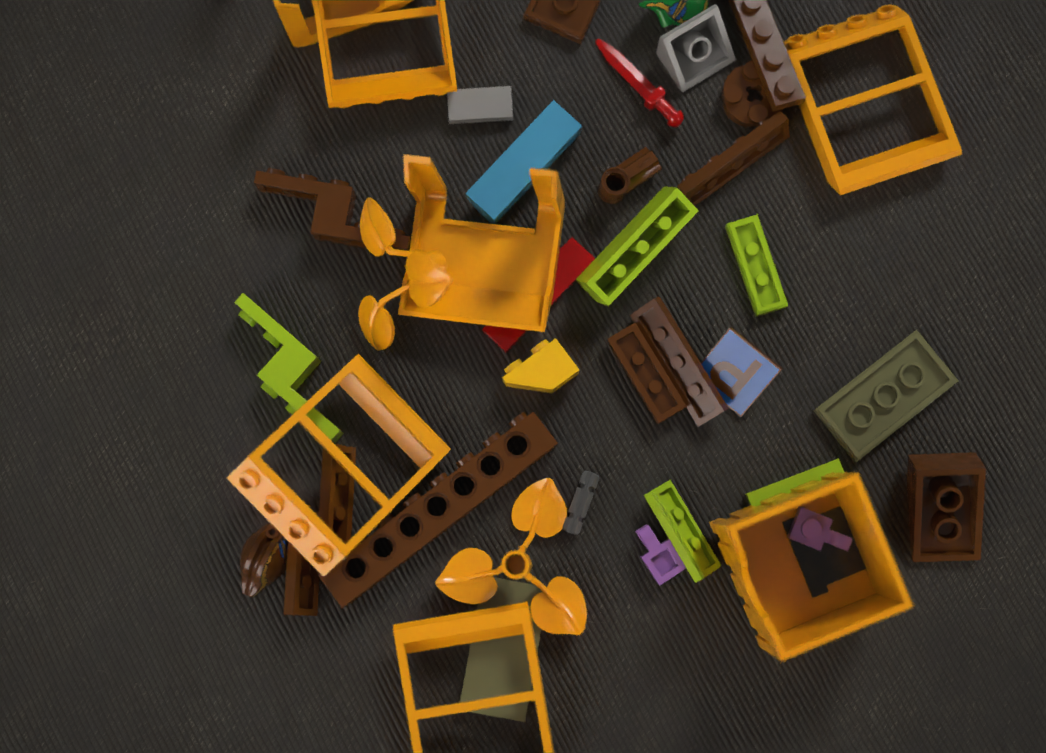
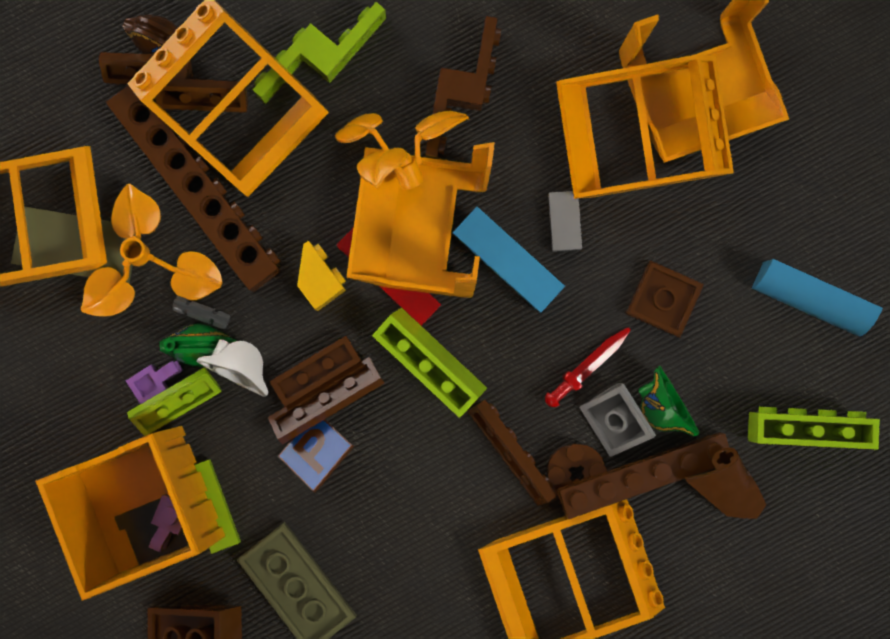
camera: 85 degrees right, 5 degrees up
(617, 508) = (193, 342): none -> green hat
(629, 174) = (499, 358): reddish brown piece -> none
(640, 456) = (238, 363): none -> white hat
(756, 265) = (416, 472): lime tile -> none

